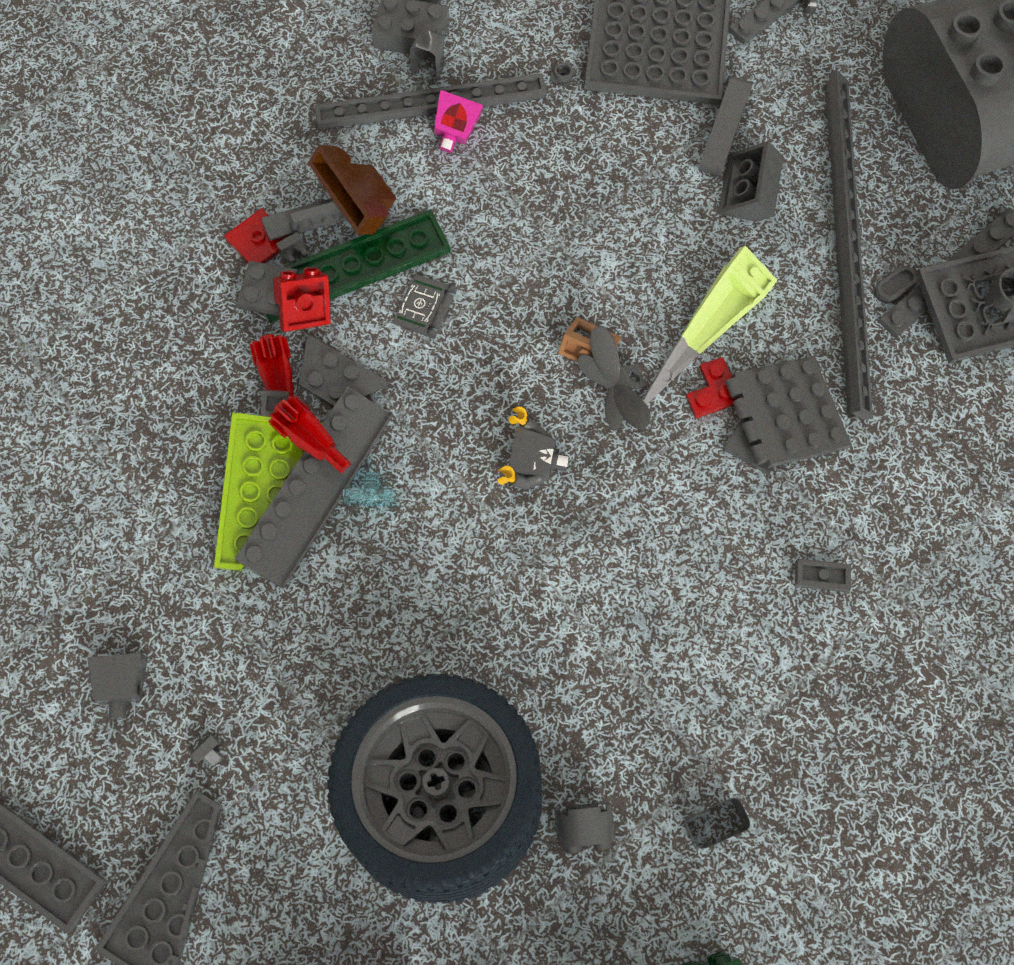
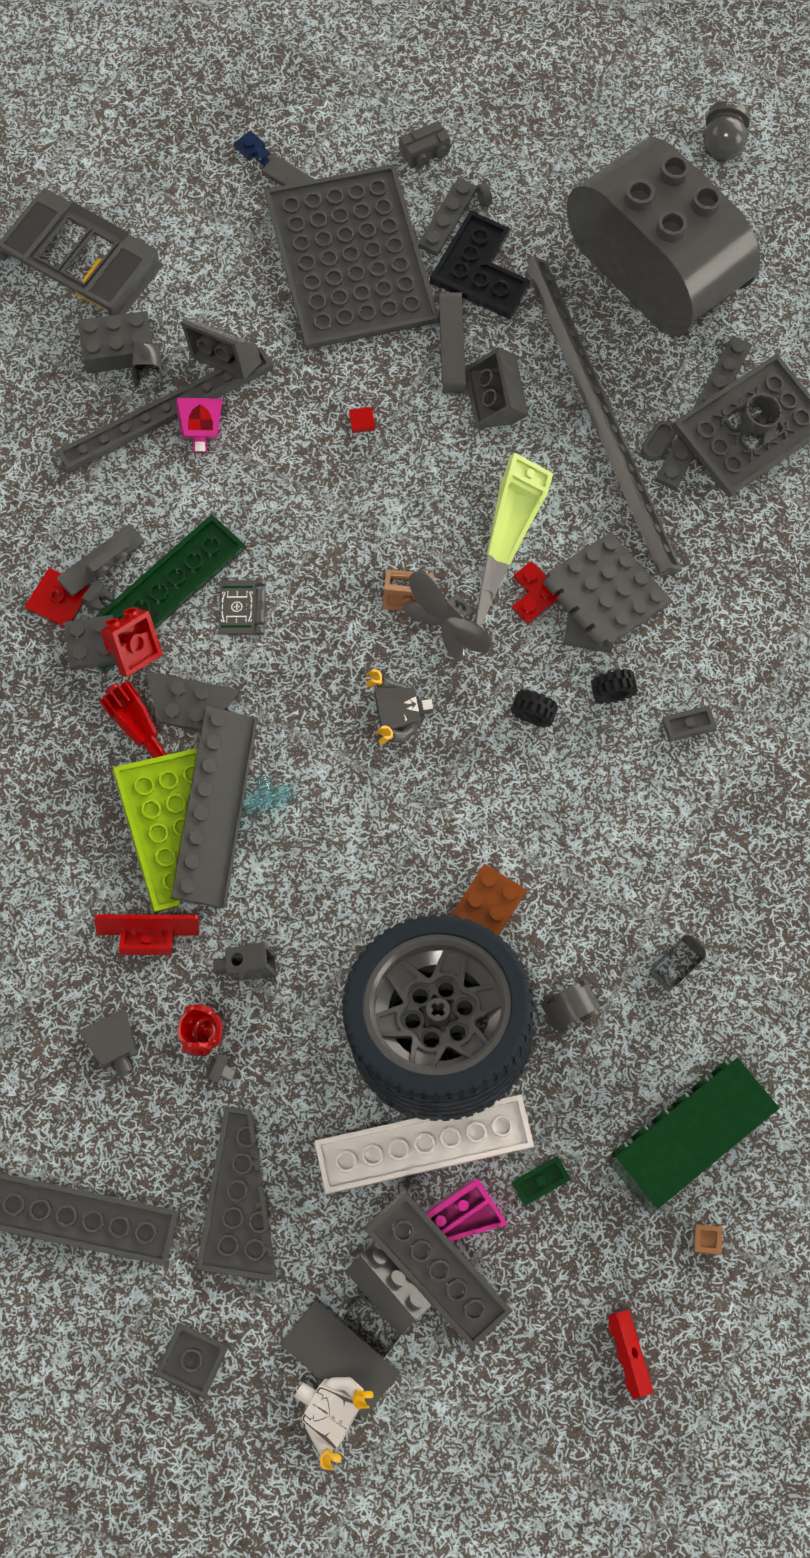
camera: 25 degrees left, 0 degrees up
(197, 585) = (146, 932): none -> red bracket
(204, 702) = (199, 1030): none -> red hair
(270, 399) = (147, 745): dark grey plate -> none
(280, 652) = (247, 962): none -> dark grey torso
(303, 428) = (191, 760): red piece -> none
(353, 187) = (134, 519): reddish brown brick -> none
(372, 913) = (421, 1146): none -> white plate
(502, 61) = (221, 349): none -> dark grey slope
(542, 685) = (490, 900): none -> dark orange plate
(567, 70) = (280, 335): dark grey plate -> none
(610, 170) = (362, 420): none -> red tile
(668, 502) = (534, 708): none -> black tyre
(758, 509) = (614, 686): none -> black tyre
(772, 67) = (470, 270): none -> black plate

